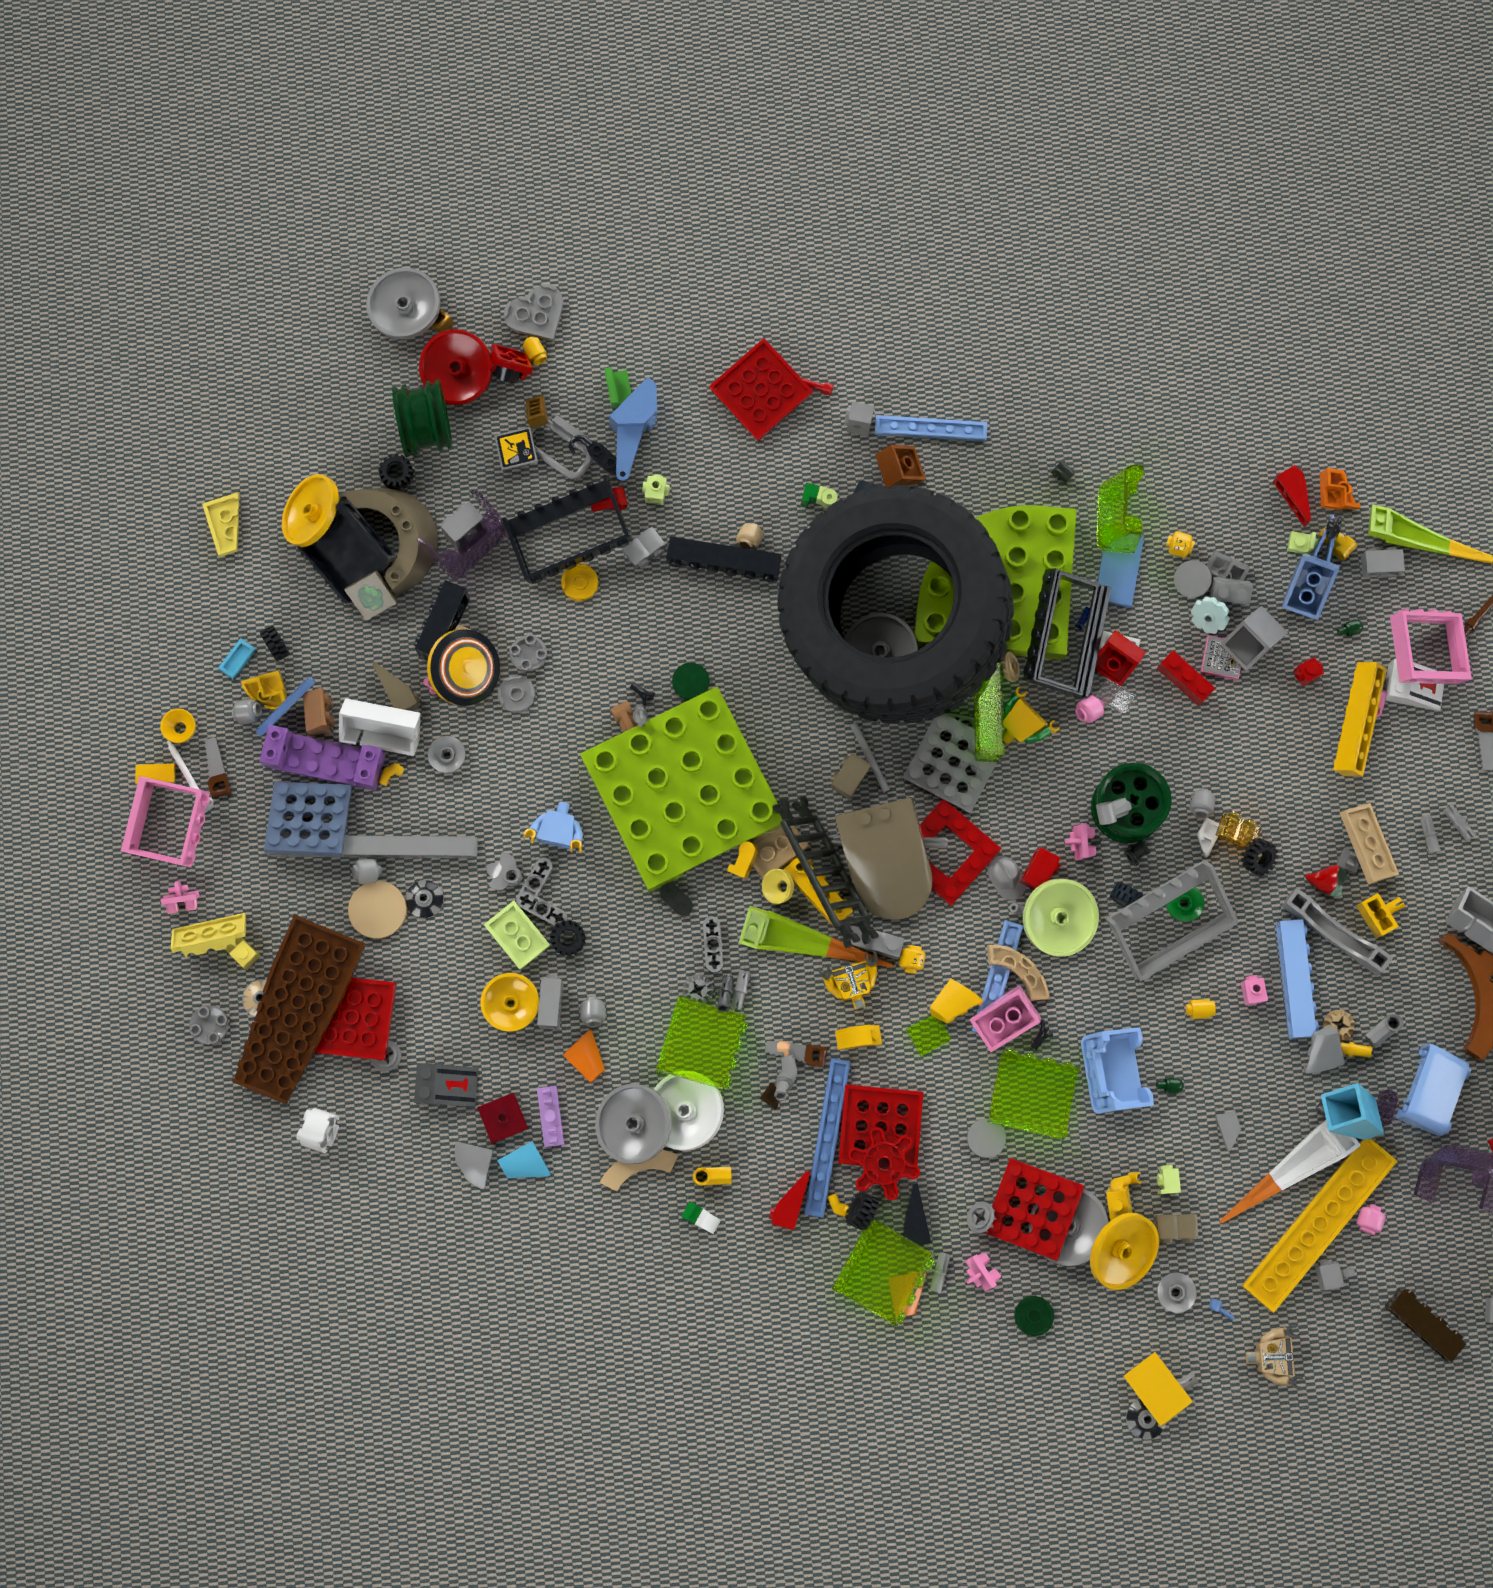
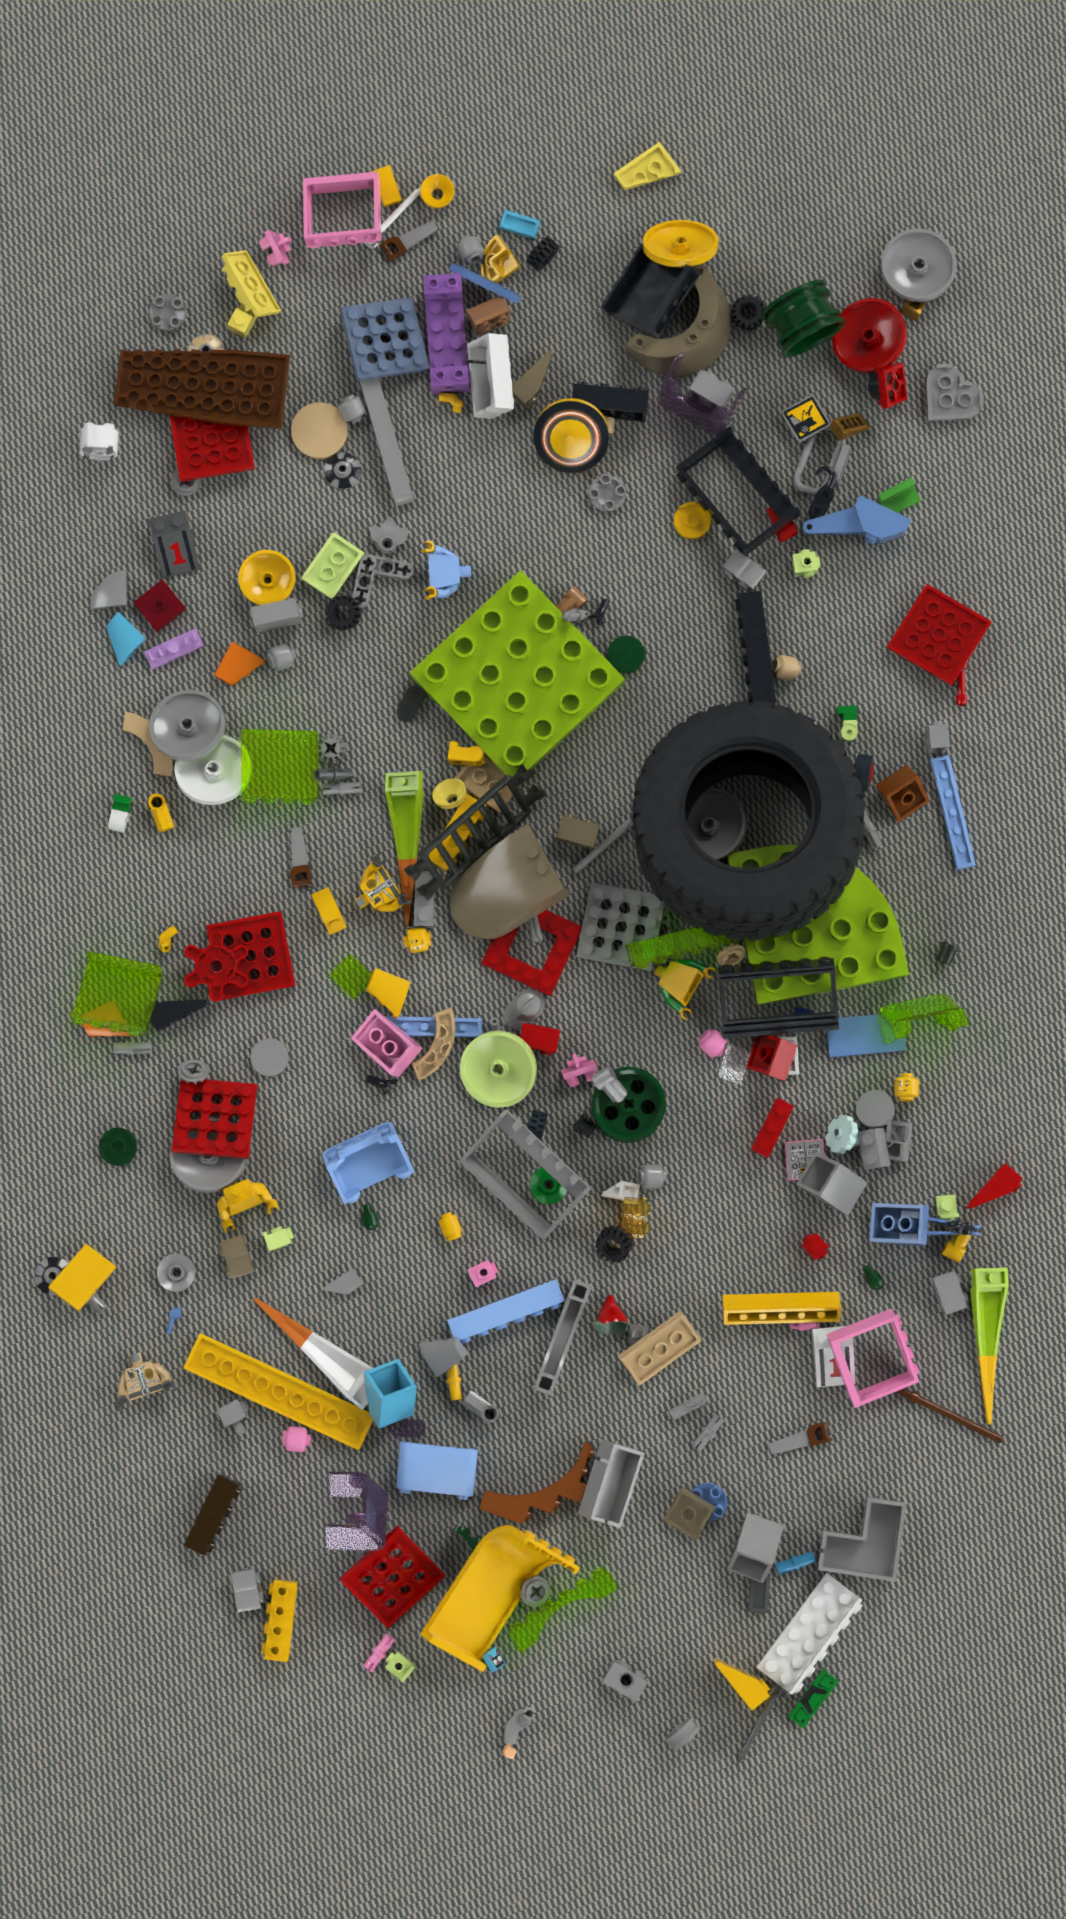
camera: 75 degrees right, 5 degrees up
(371, 595) = (616, 327): dark tan tile -> none
(445, 745) = (483, 438): light grey dish -> none
(516, 694) = (564, 494): light grey tile -> none
(534, 350) = (911, 406): yellow brick -> none
(706, 930) = (366, 760): light grey beam -> none
(768, 1096) = (251, 846): dark brown tile -> none
(788, 1074) = (271, 854): light grey arm -> none
(788, 1208) = (151, 891): red slope -> none
(827, 1138) = (227, 909): medium blue tile -> none
(862, 1210) = (166, 957): black tyre -> none
(979, 1274) = (138, 1093): bright pink hips -> none
(1033, 1094) = (322, 1089): clear neon green panel -> none
(1124, 1251) = (198, 1210): yellow dish -> none
(1336, 491) = (1010, 1229): orange slope -> none
(1347, 1020) = (481, 1370): tan gear -> none
(1379, 915) = (592, 1374): yellow brick -> none

